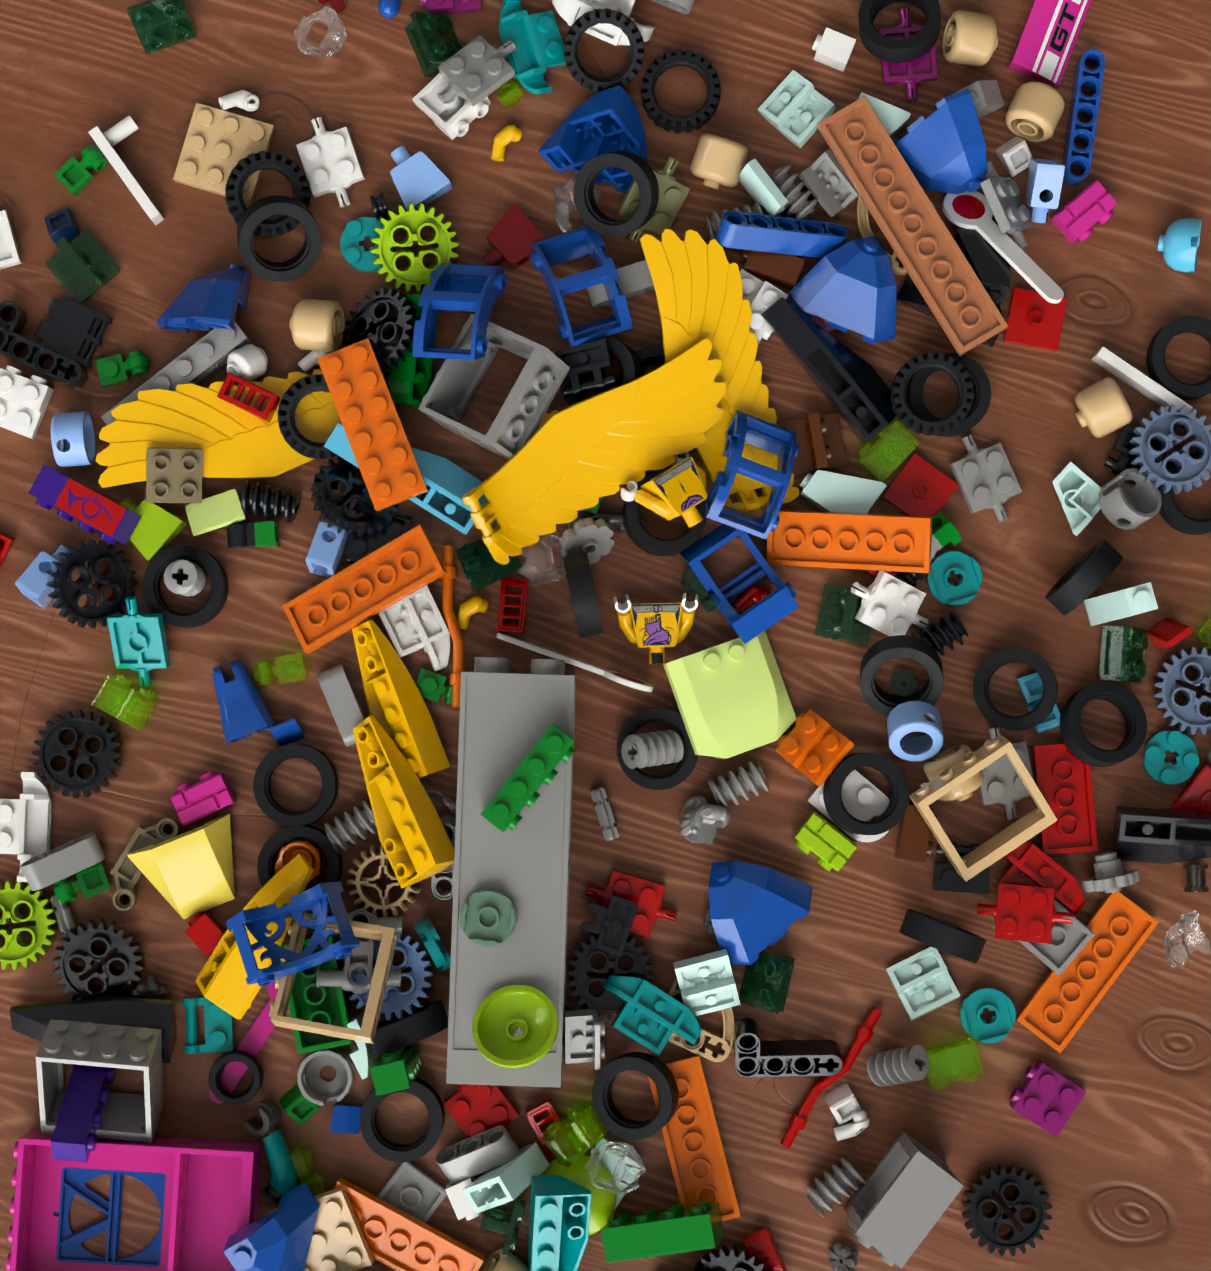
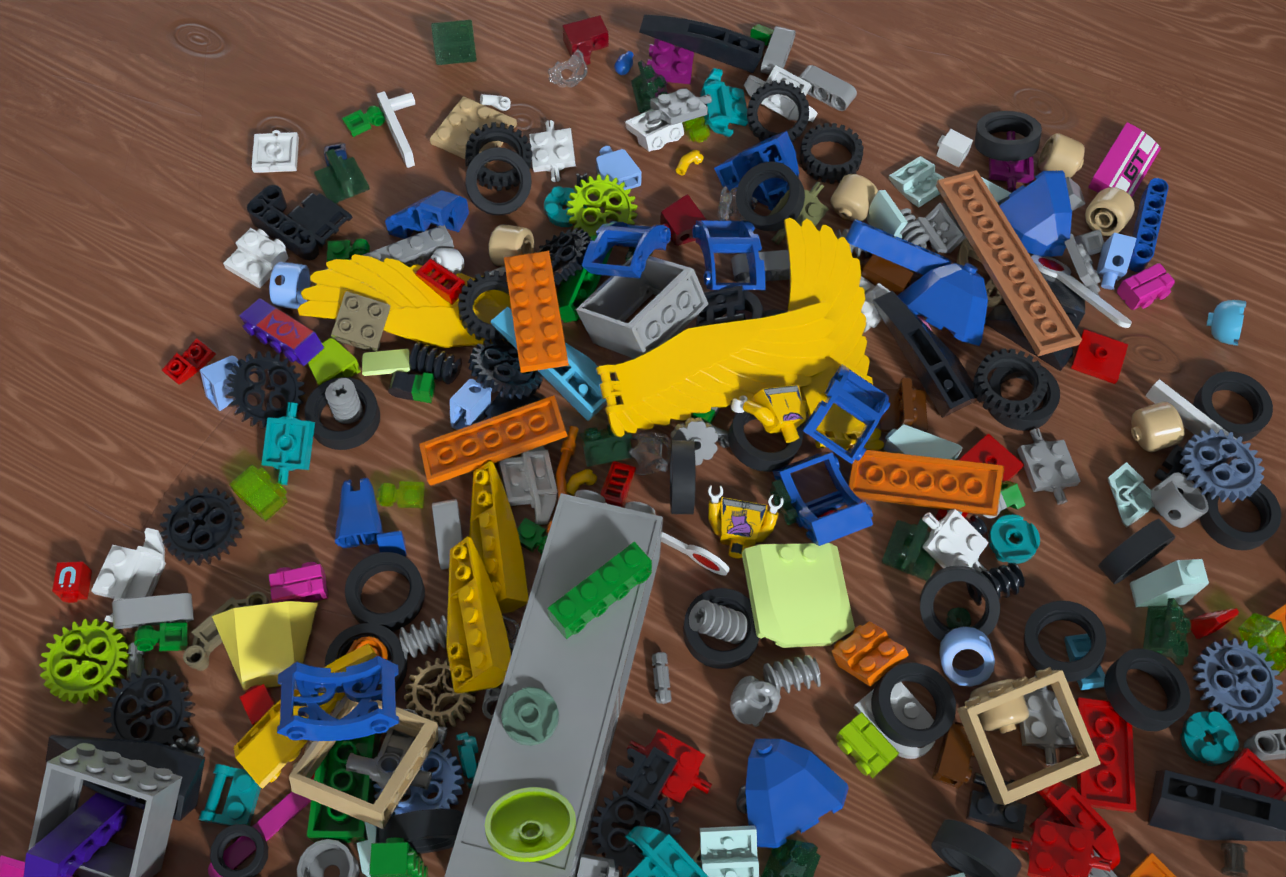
camera: 10 degrees right, 25 degrees down
(887, 452) = (966, 425): clear neon green brick -> none
(1110, 874) = (1149, 834): light grey plant -> none

